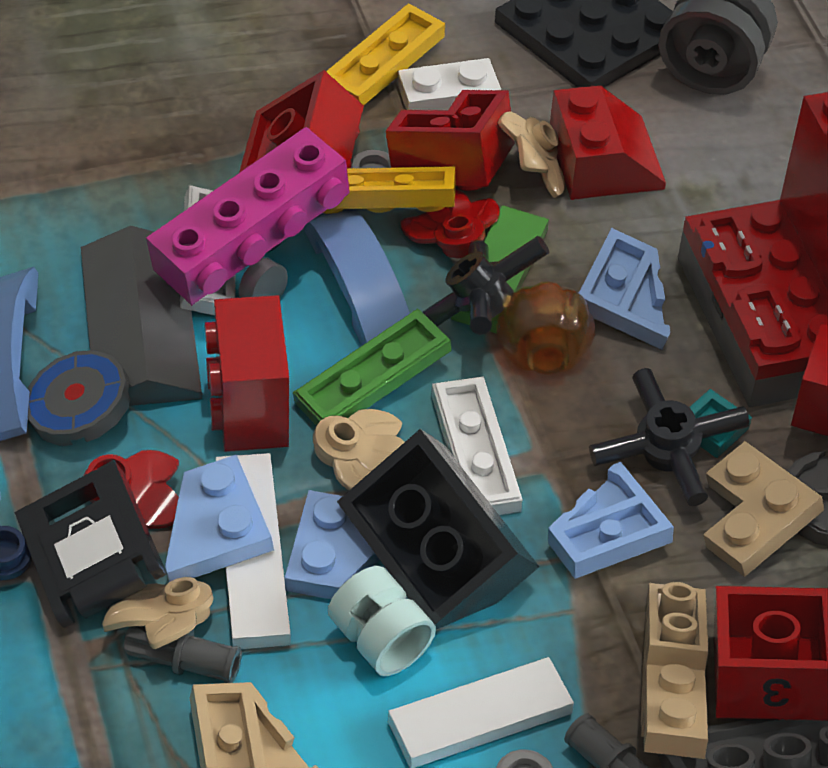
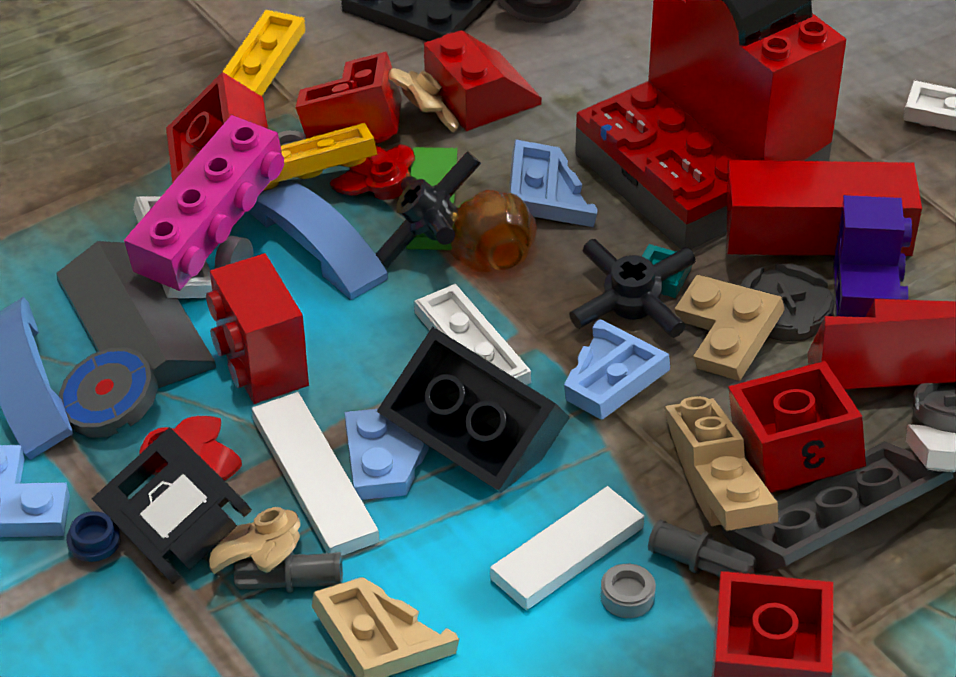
camera: 15 degrees left, 5 degrees down
(215, 521) = (277, 456): light blue wing -> none
(356, 443) = (370, 365): tan plate -> none
(374, 369) = (359, 304): bright green tile -> none
(385, 624) = (458, 497): light aqua wheel -> none
(439, 85) = (320, 65): white plate -> none

